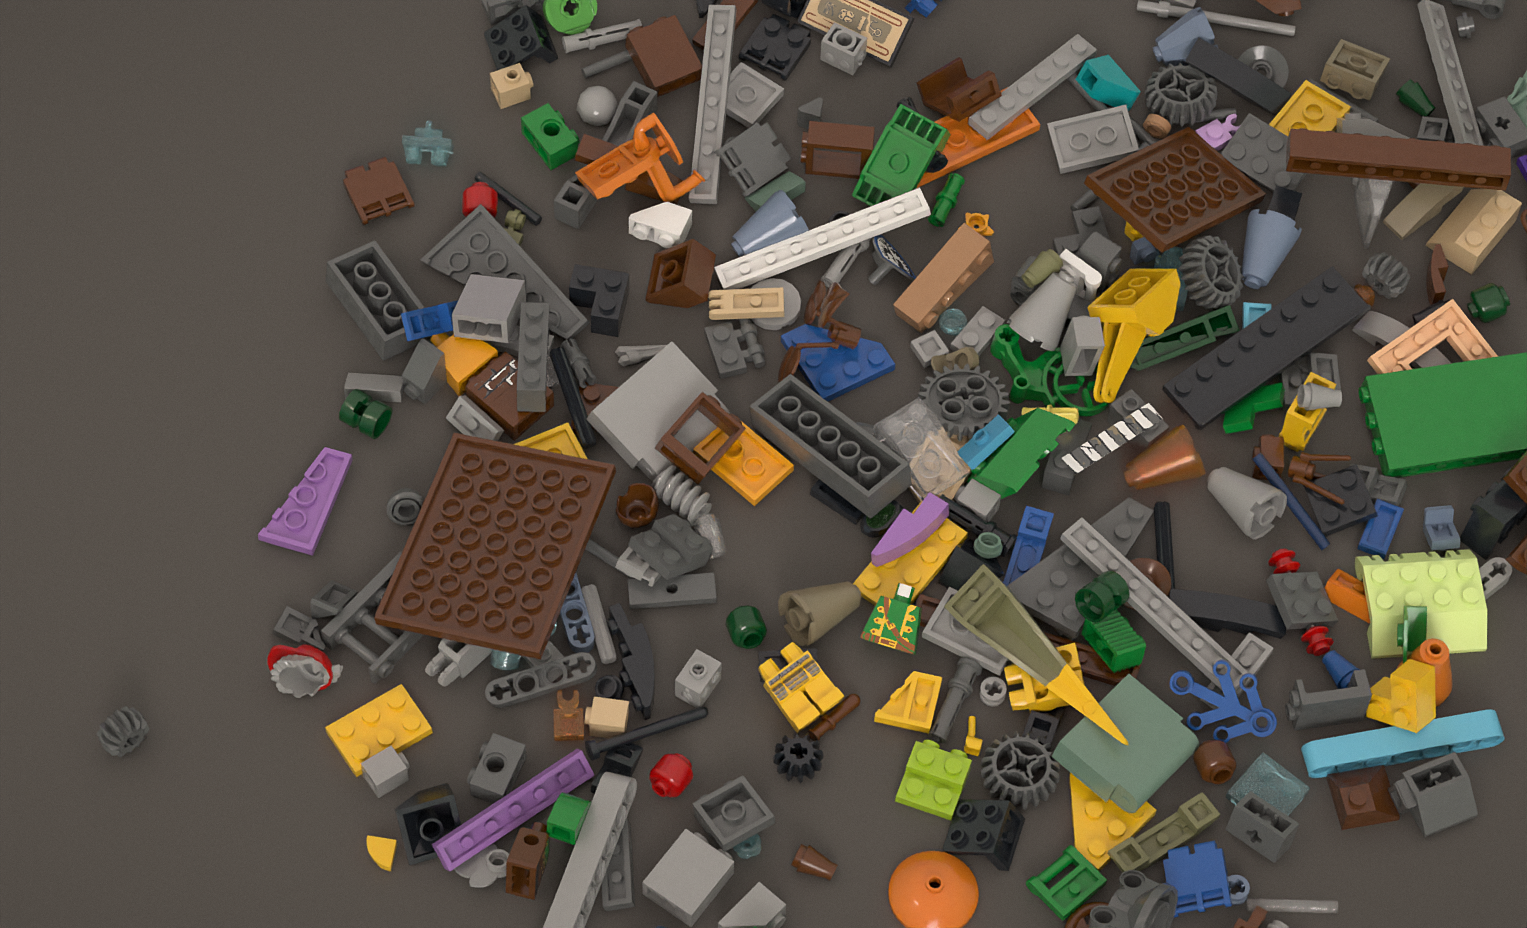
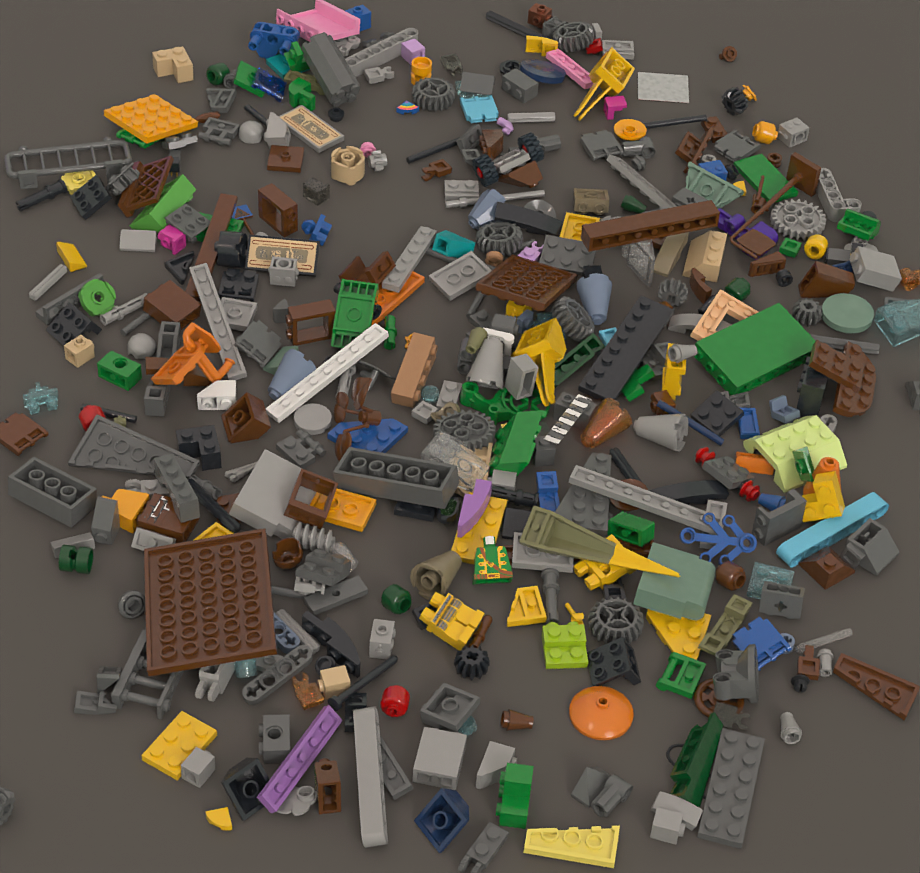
camera: 25 degrees left, 15 degrees down
(301, 669) = (108, 723): light grey hair -> none
(309, 505) = (62, 626): medium lavender wing -> none
(428, 321) = (100, 486): blue slope -> none
(488, 308) = (132, 470): light grey brick -> none
(567, 818) = (344, 746): green brick -> none
(746, 303) = (297, 420): tan hinge -> none
(985, 442) = (493, 443): dark azure plate -> none
(988, 545) = (525, 501): sand green plate -> none
(998, 697) = (571, 579): light grey bush -> none
(1102, 596) = (613, 503): dark green wheel -> none
(1303, 469) = (686, 405): reddish brown plant -> none

